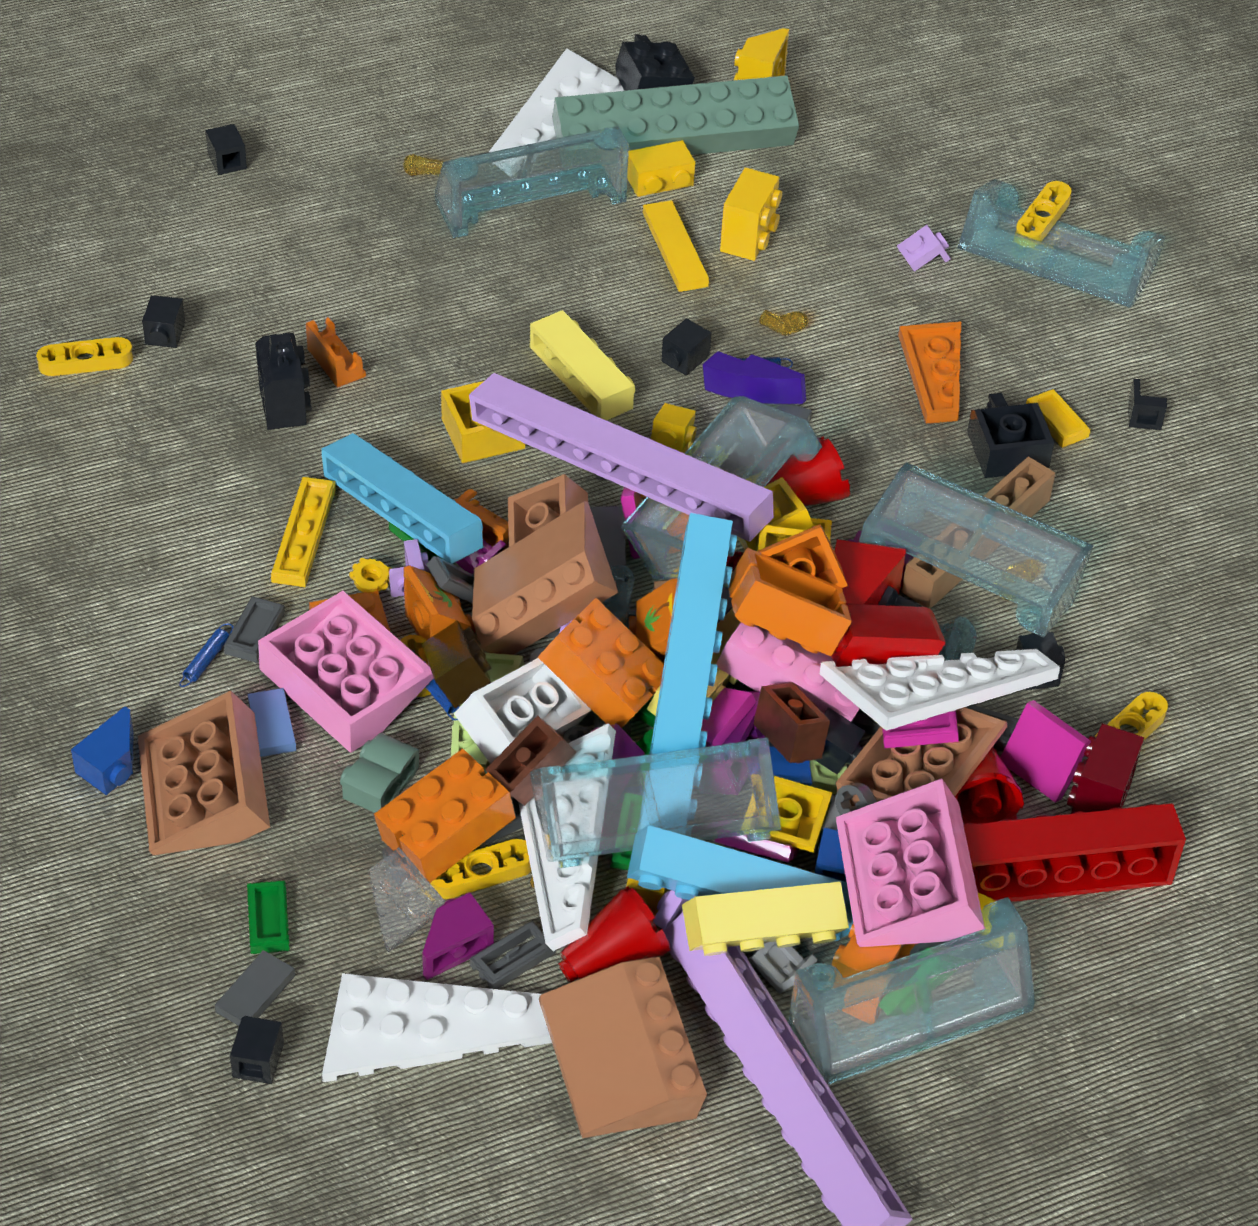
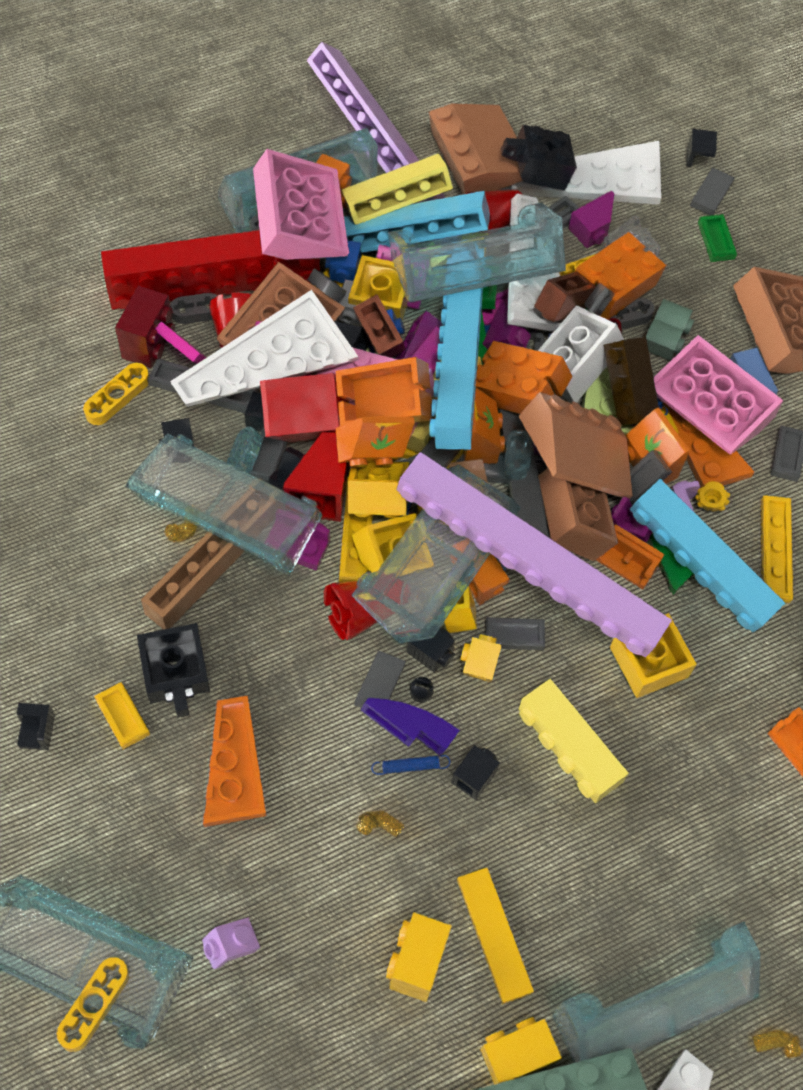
camera: 175 degrees right, 15 degrees up
(486, 742) = (599, 299): none -> dark grey slope
(532, 991) = (542, 156): none -> black hinge

